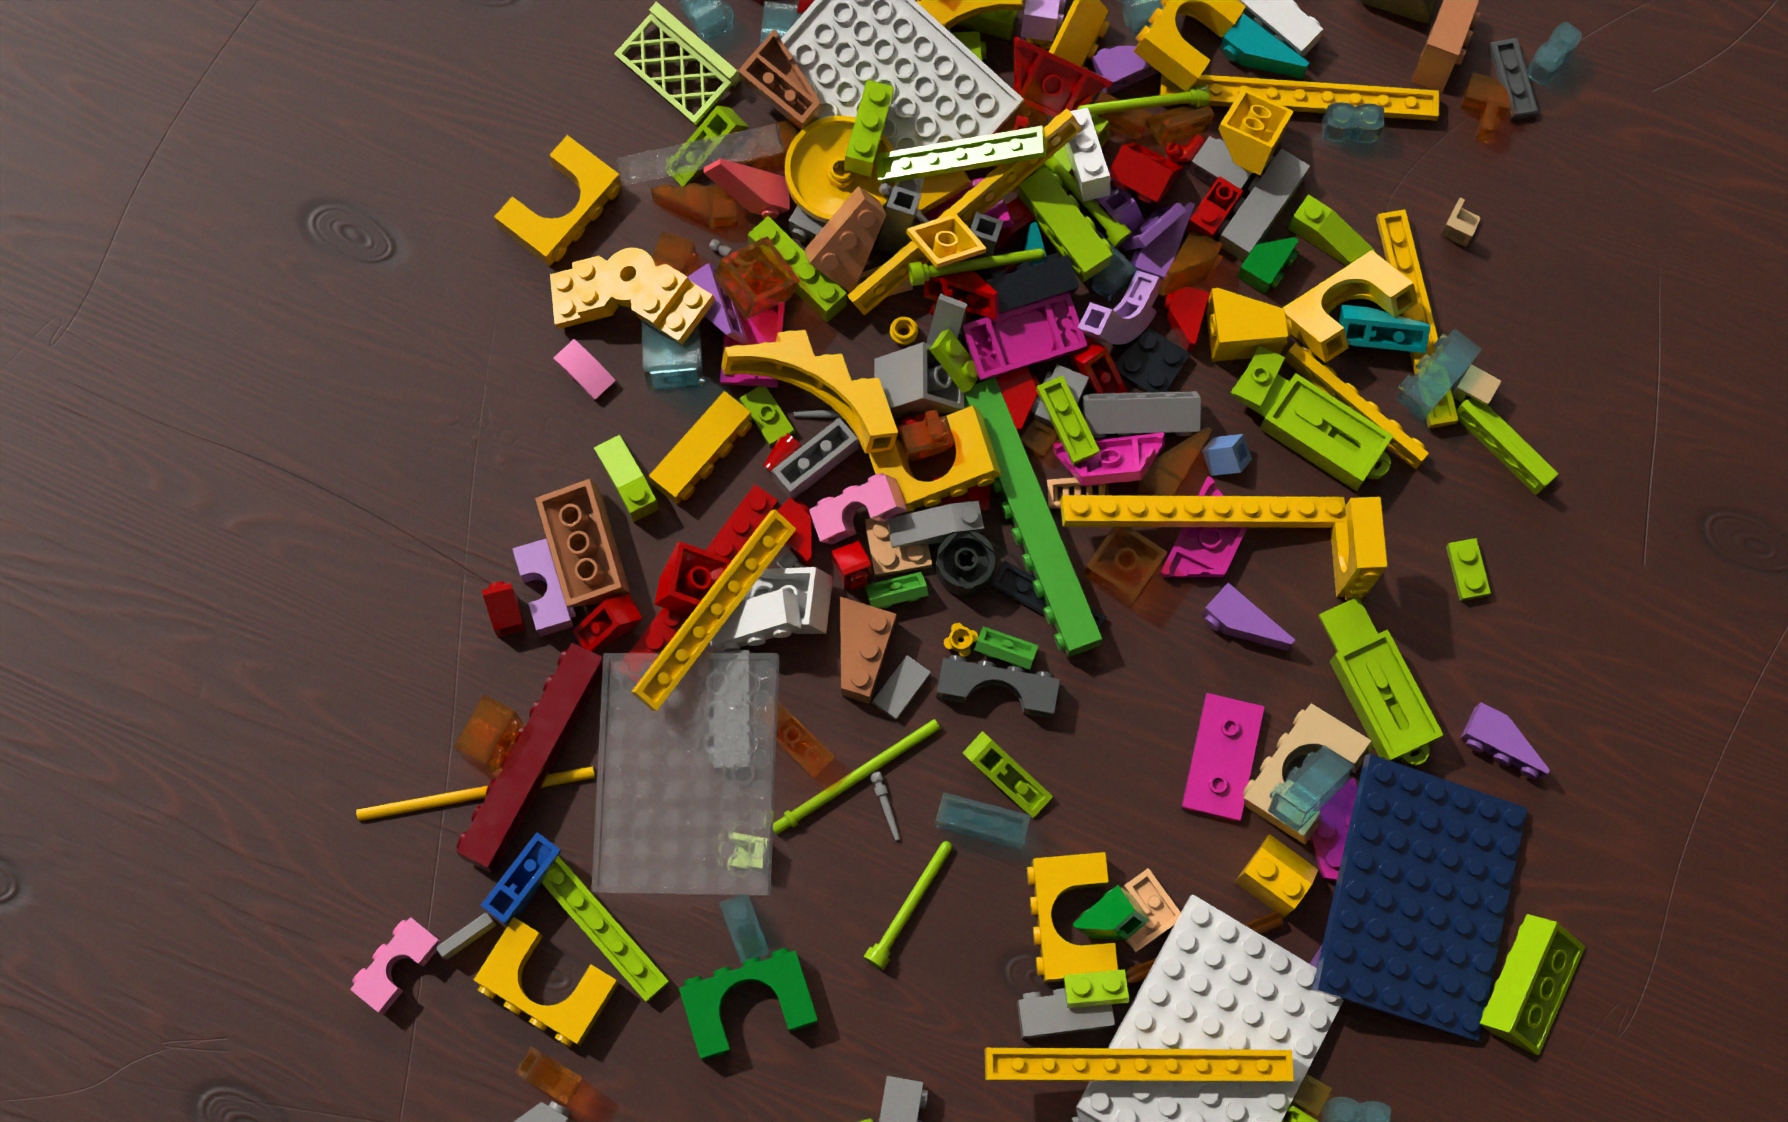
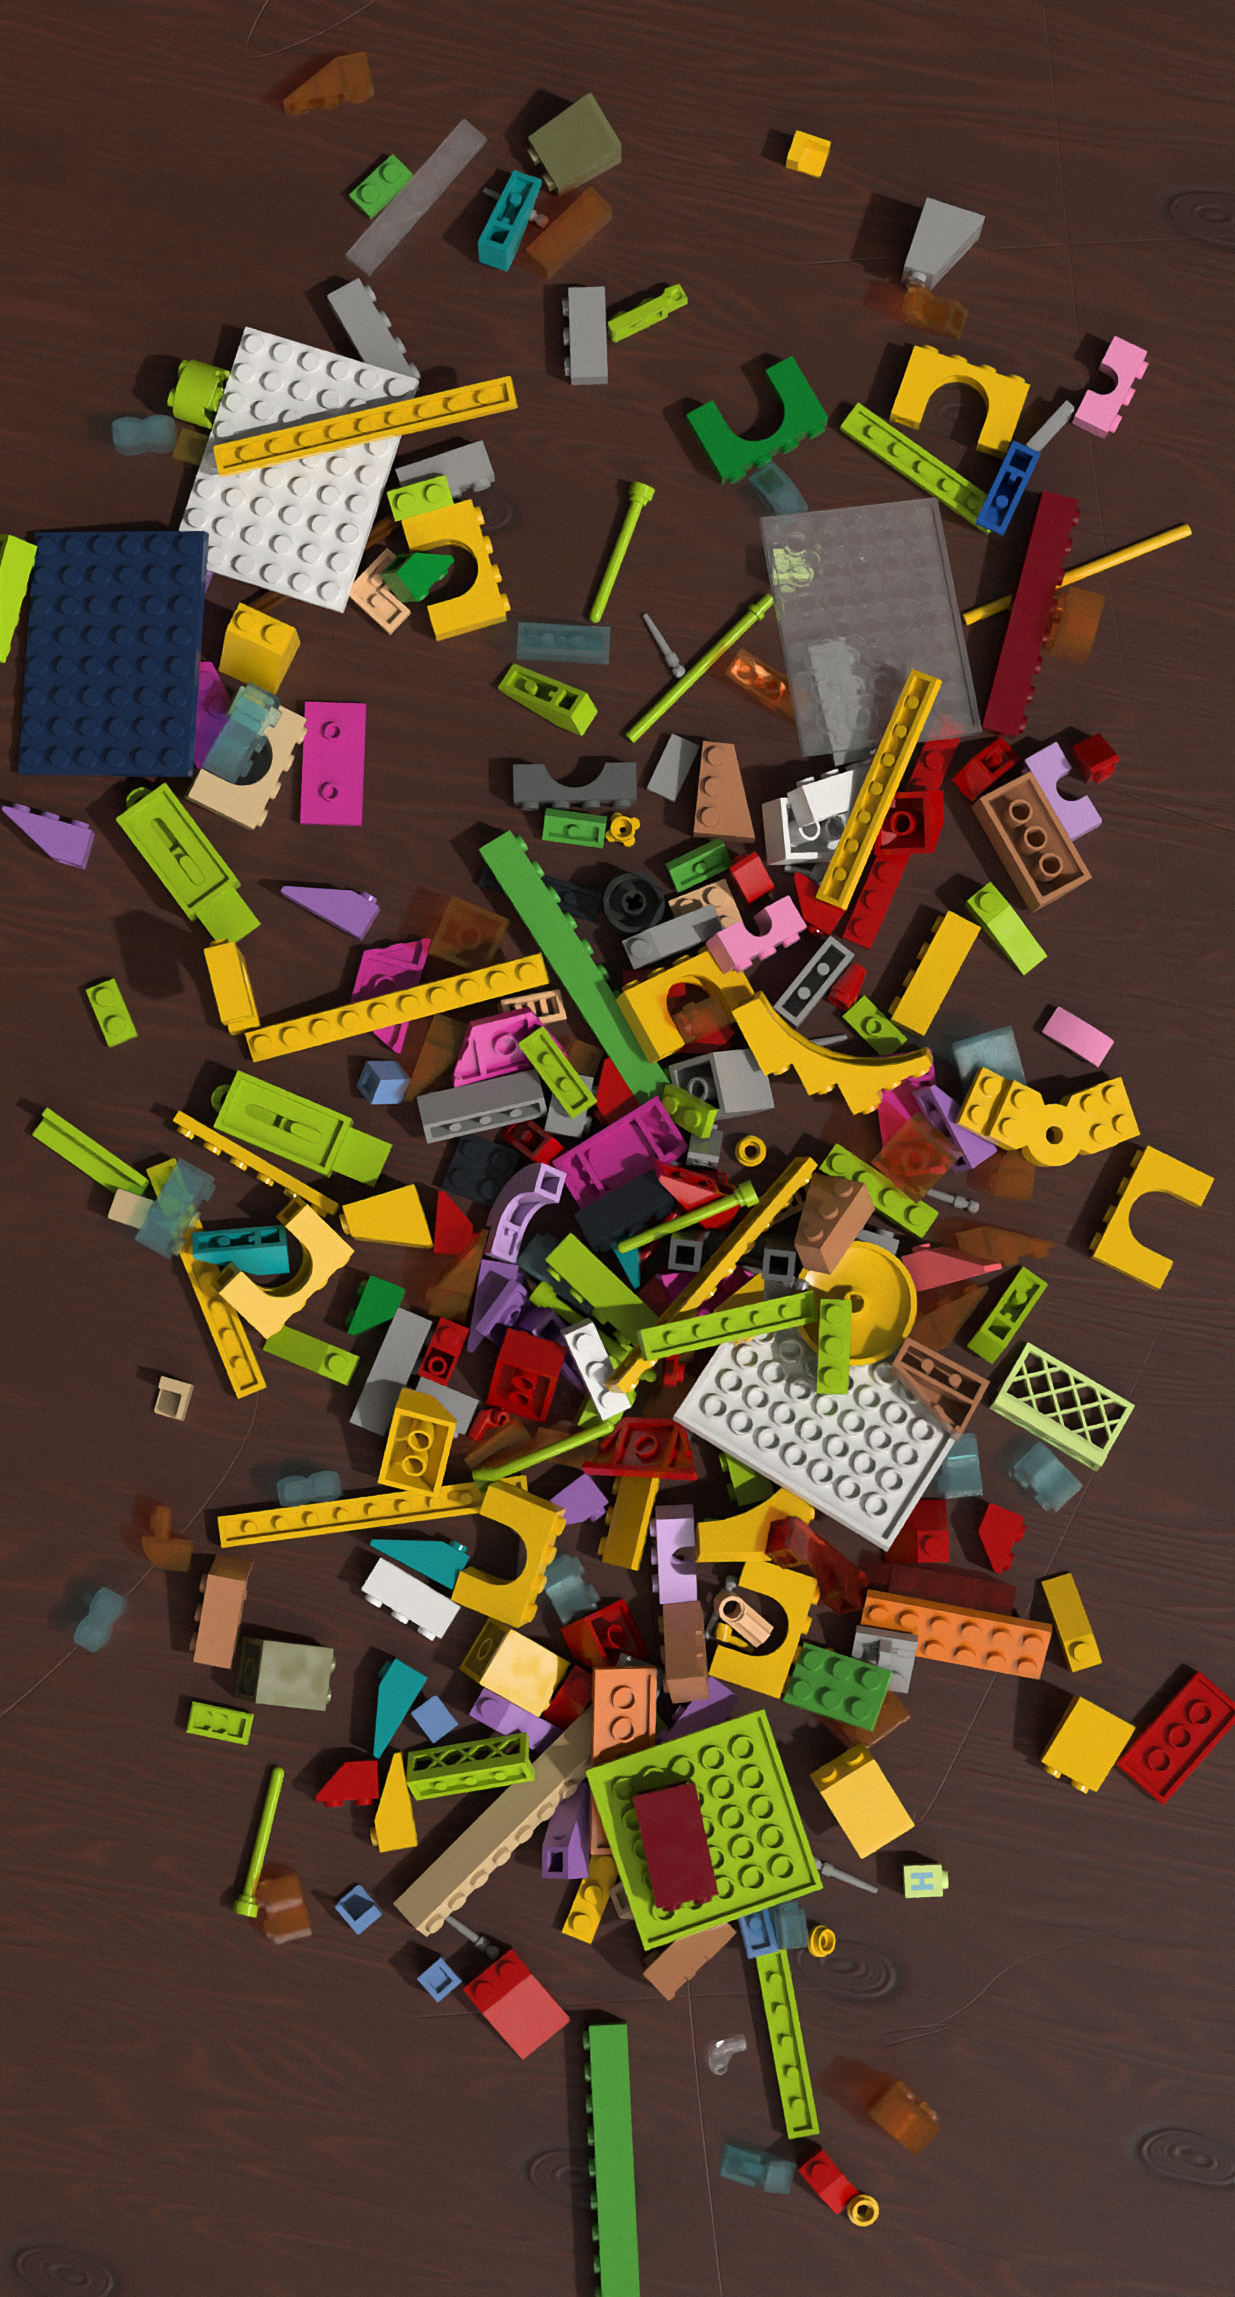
camera: 170 degrees right, 10 degrees up
(699, 154) = (1010, 1292): clear plate -> none
(946, 240) = (723, 1221): yellow slope -> none
(1259, 377) = (364, 1164): lime plate -> none
(1514, 77) = (140, 1585): dark grey tile -> none

